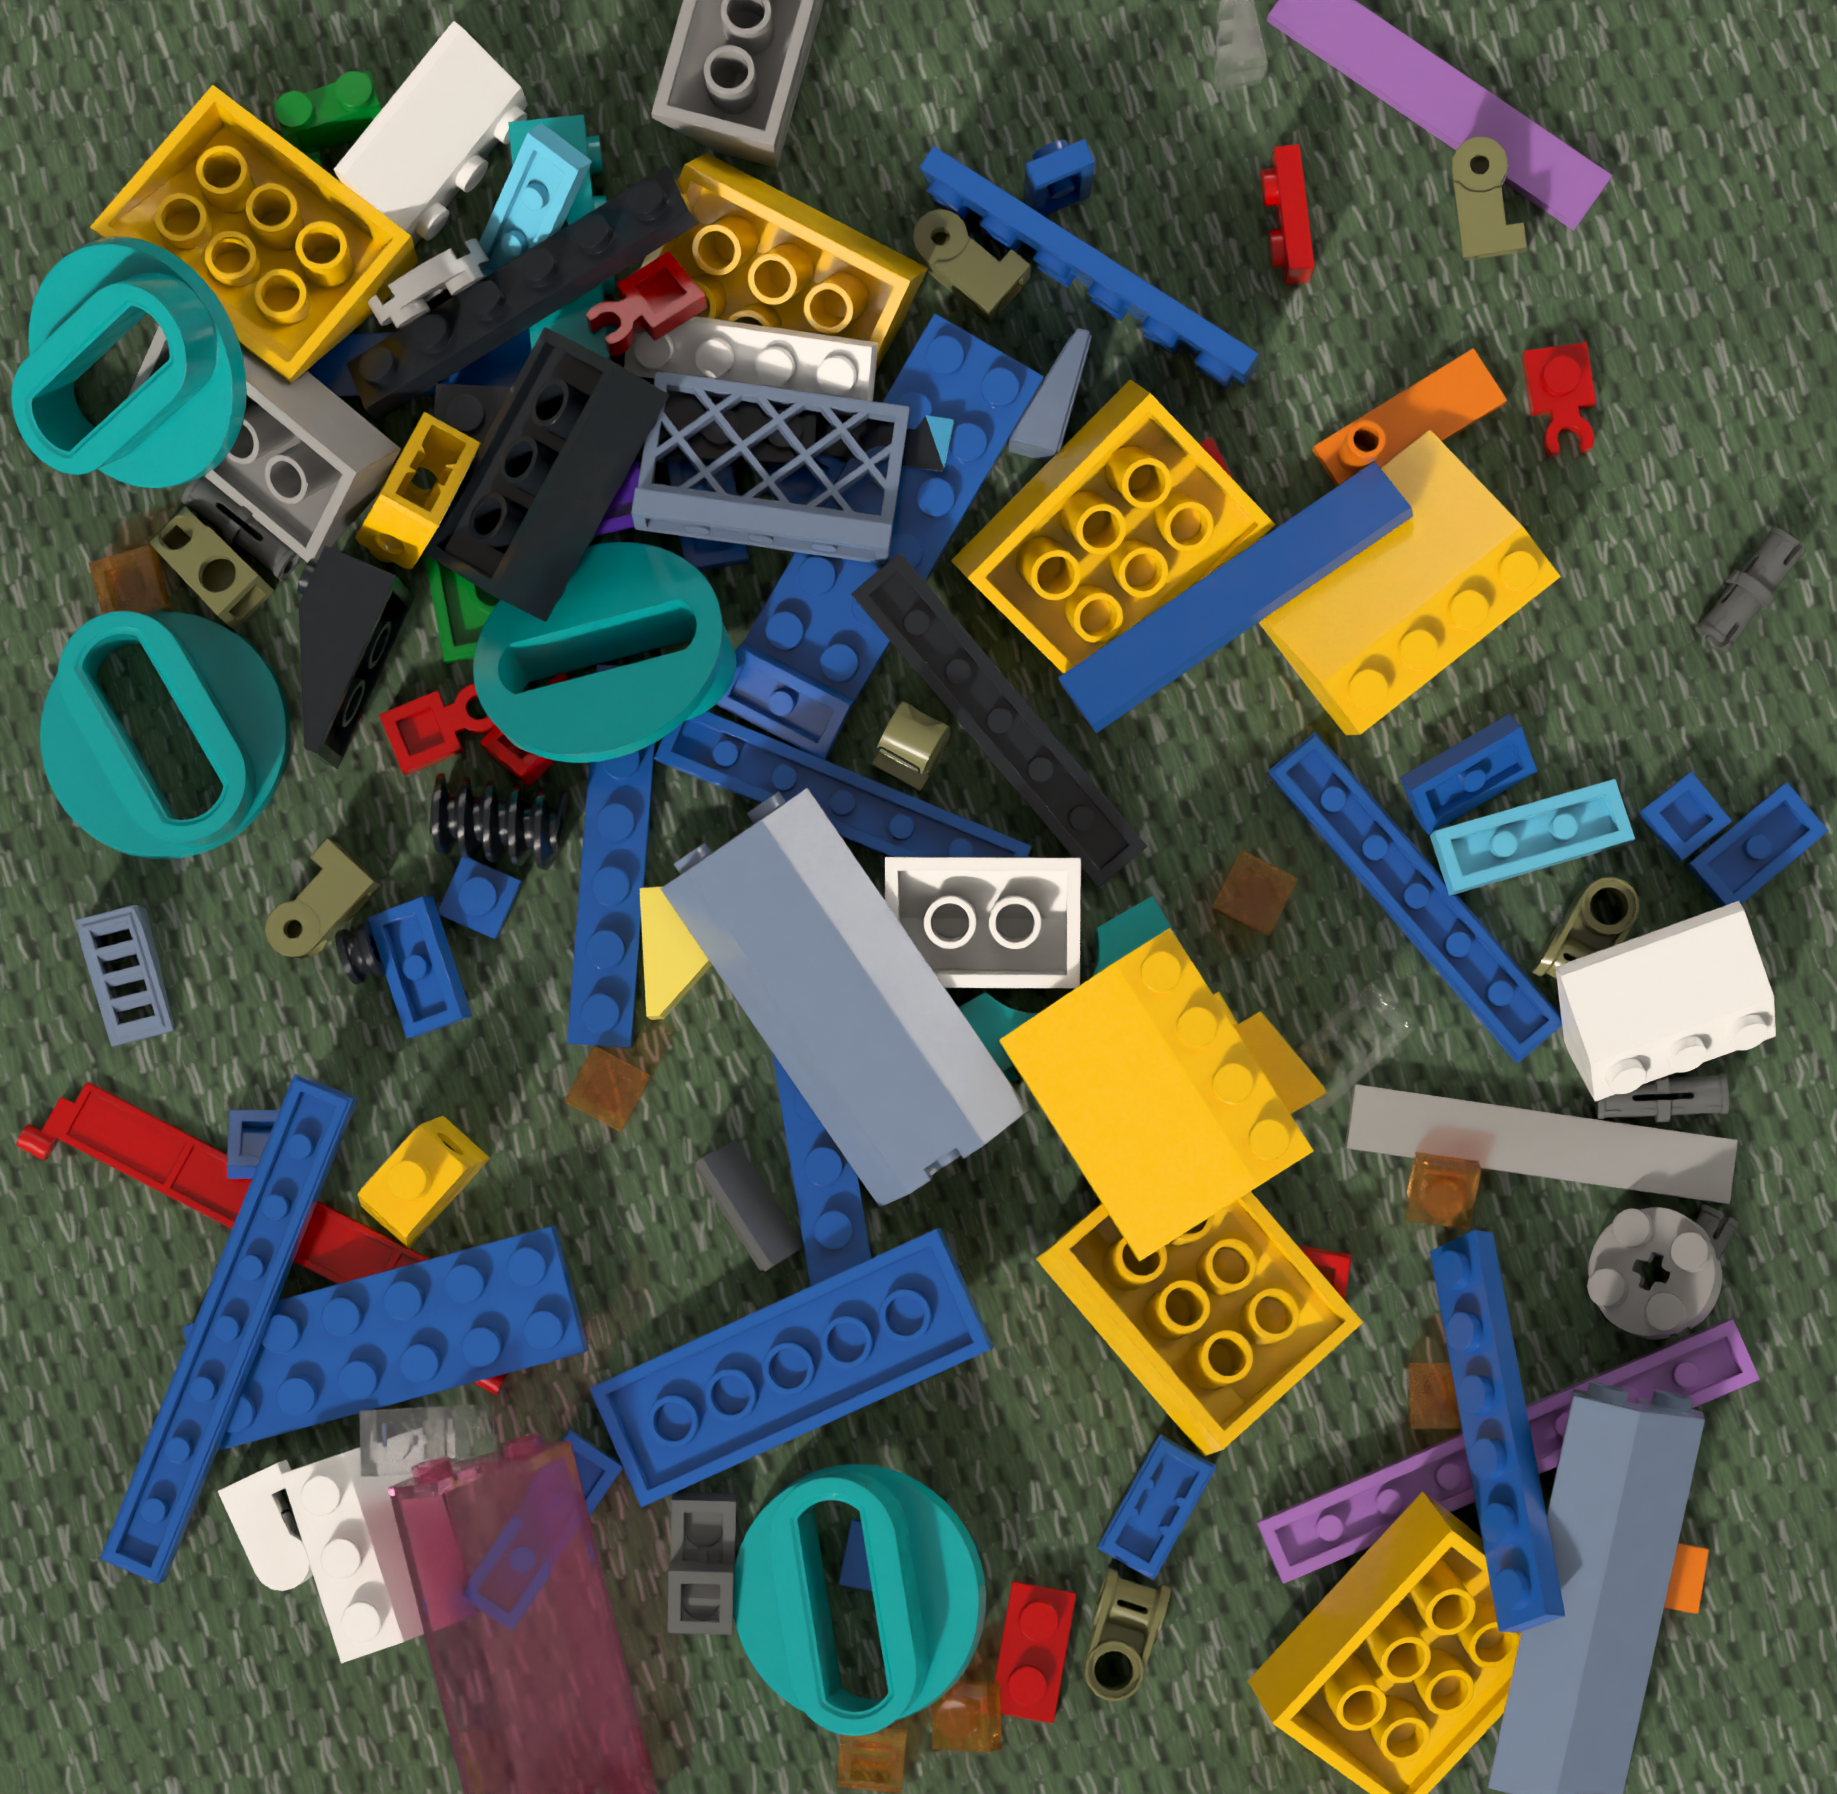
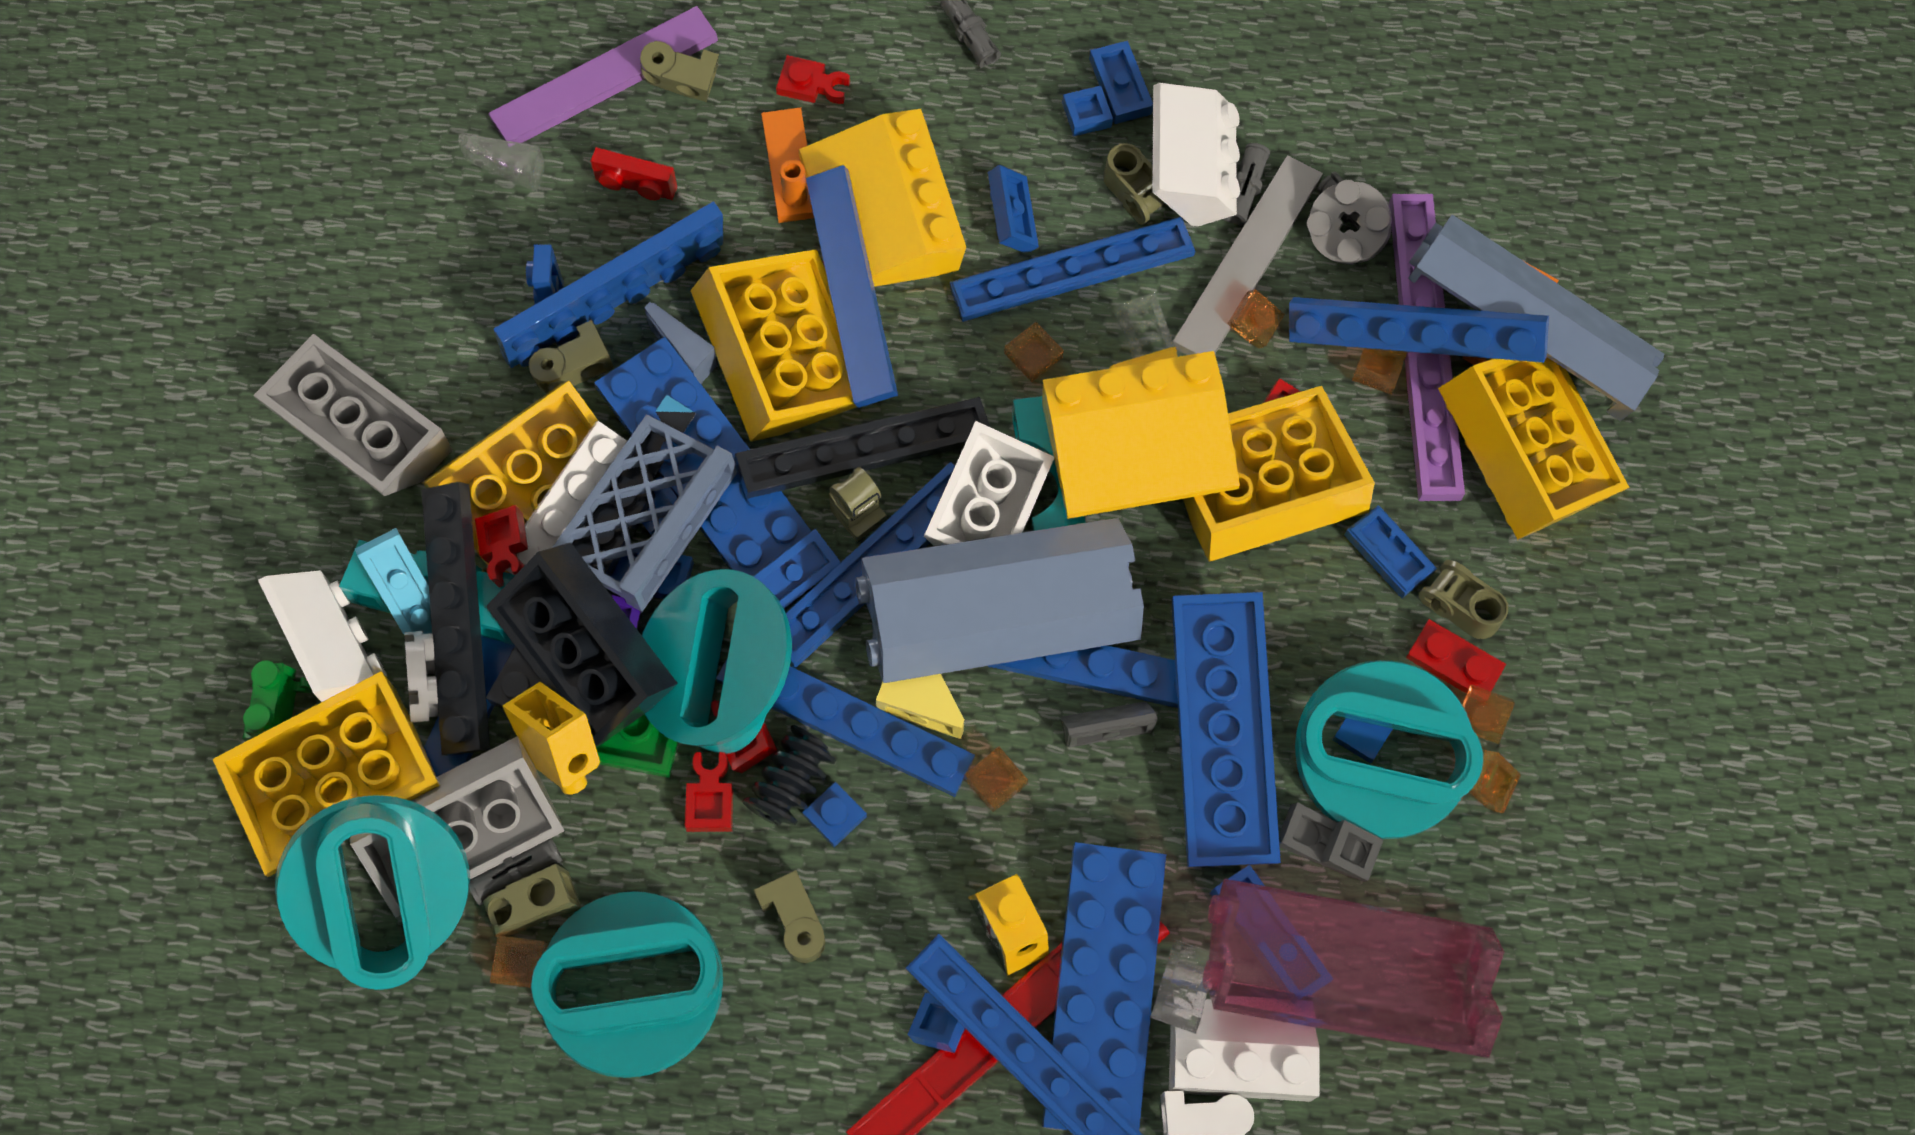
camera: 75 degrees left, 15 degrees down
(96, 956) = (762, 1087): sand blue slope -> none
(346, 634) = (617, 818): black slope -> none
(358, 953) = (838, 903): black bush -> none
(419, 967) = (864, 868): blue plate -> none
(1532, 837) = (1065, 191): medium azure plate -> none

